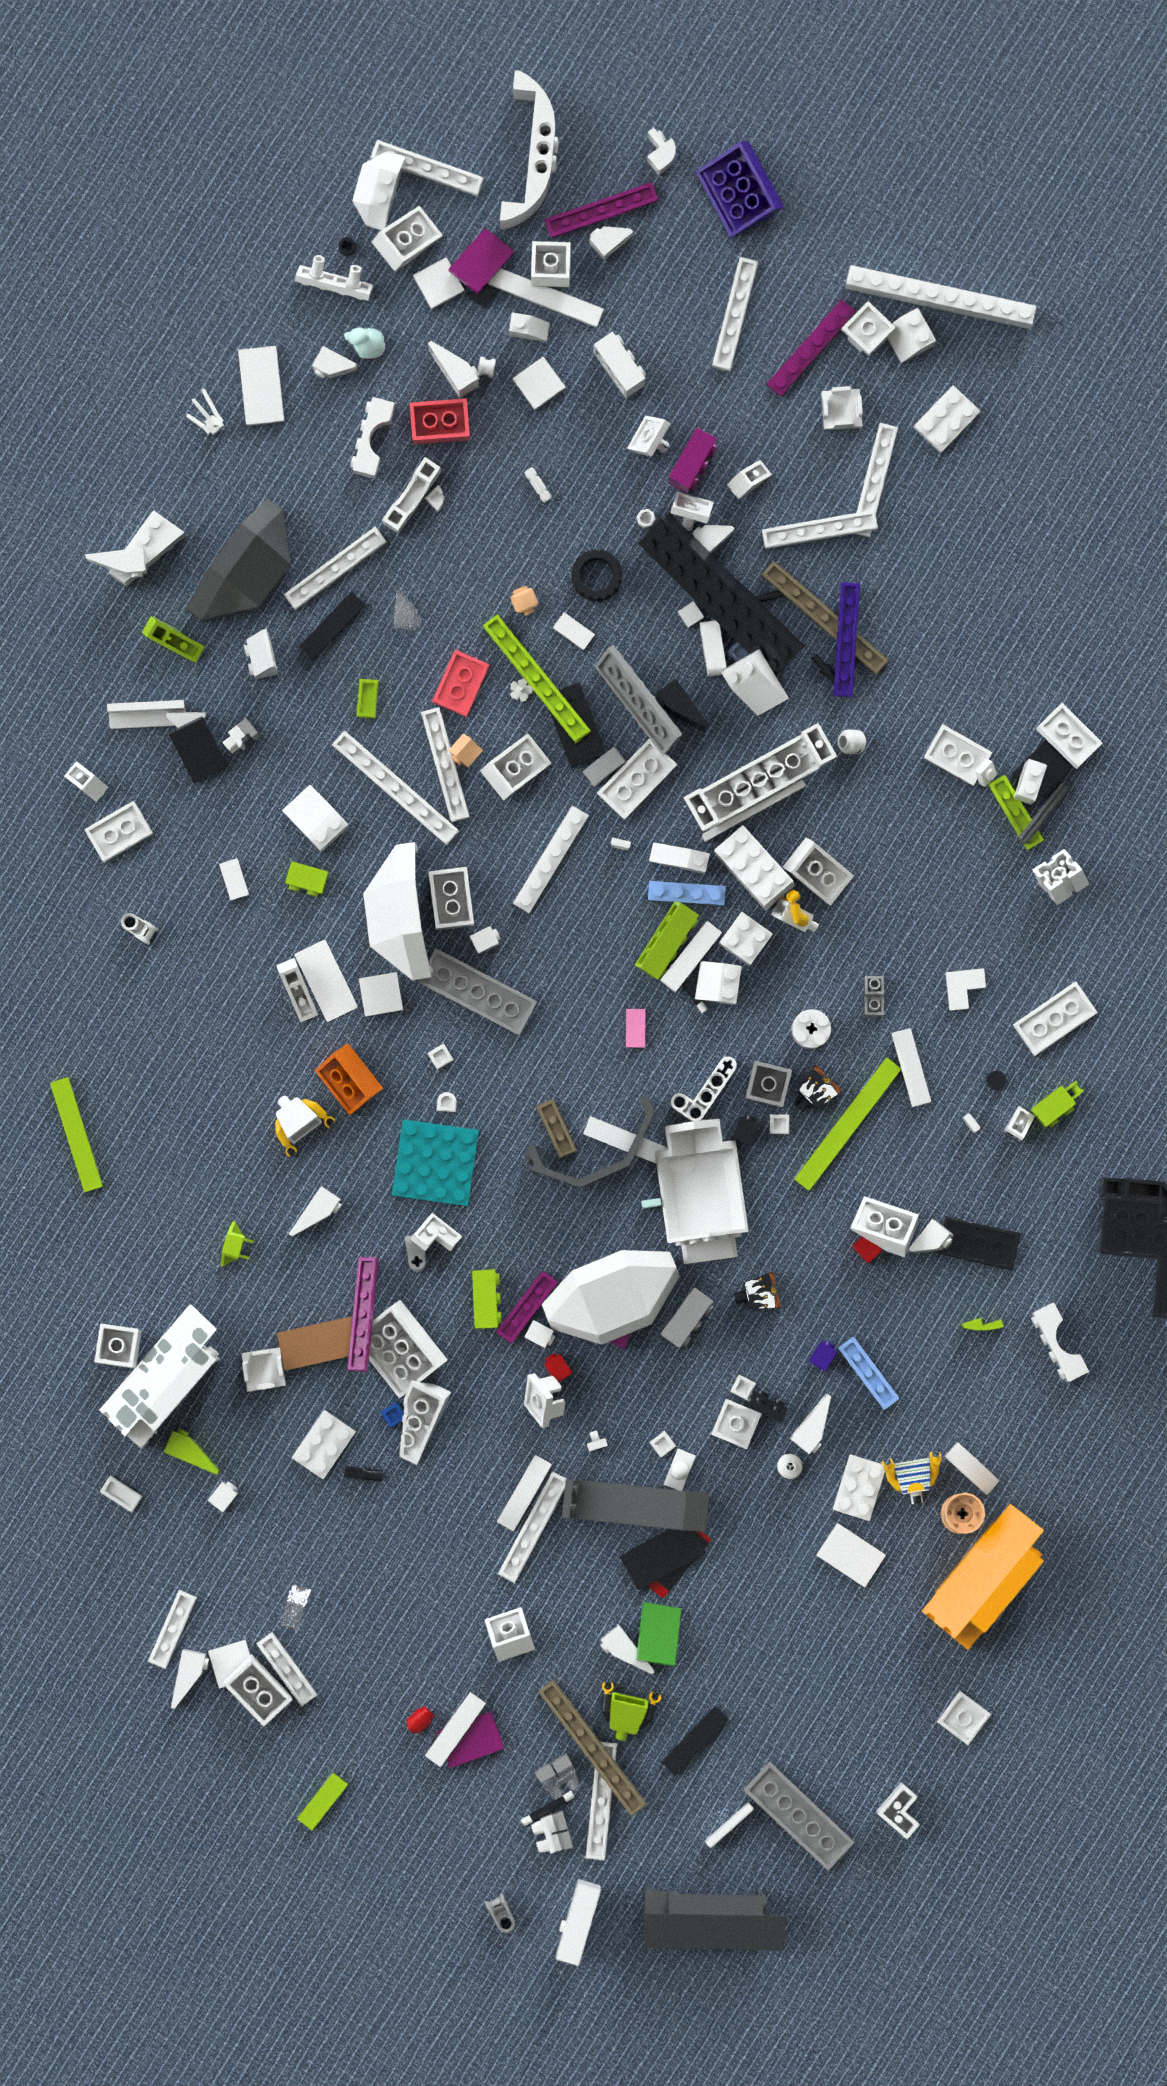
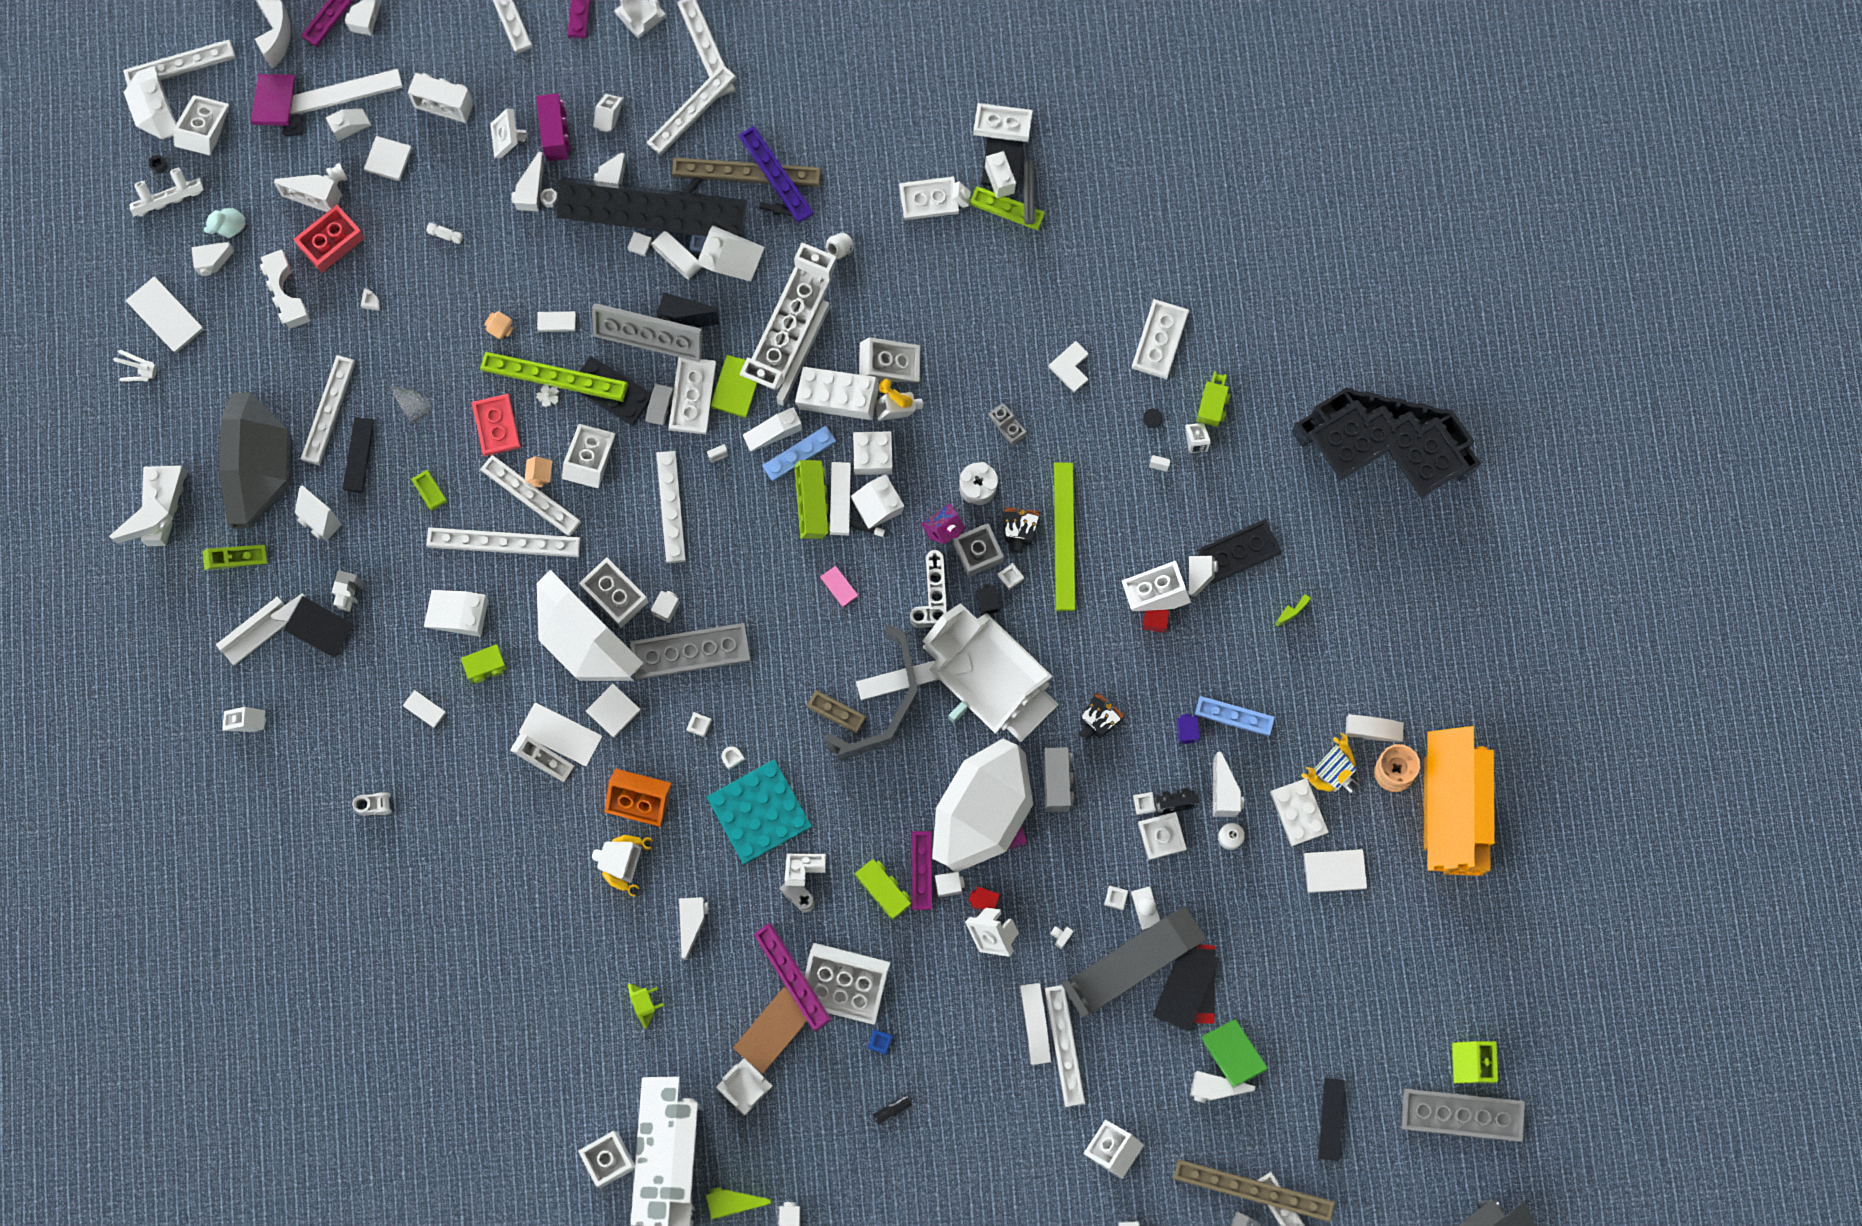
camera: 35 degrees left, 10 degrees down
(76, 1134) = (444, 1011): lime tile -> none
(118, 831) = (300, 741): white tile -> none
(323, 1444) = (840, 1110): white plate -> none
(412, 496) = (349, 301): white arch -> none
(422, 1411) = (902, 1022): white wedge -> none
(438, 283) = (252, 141): white tile -> none
(550, 264) = (330, 62): white brick -> none
(605, 557) = (534, 250): black tyre -> none
(626, 1712) = (1259, 1139): lime torso -> none
(635, 498) = (529, 186): none -> white slope
(669, 800) = (733, 391): none -> lime tile
(691, 509) = (579, 163): white tile -> none
(729, 1825) = (1414, 1167): white tile -> none
(757, 1043) = (943, 525): none -> magenta torso
(839, 1784) = (1475, 1062): none -> lime slope
(895, 1808) = (1536, 1050): white brick -> none
(911, 1067) = (1079, 456): white tile -> none
(964, 1718) = (1528, 932): white tile -> none
(1048, 1320) = (1341, 570): white arch -> none
(1060, 877) = (1080, 227): white brick -> none

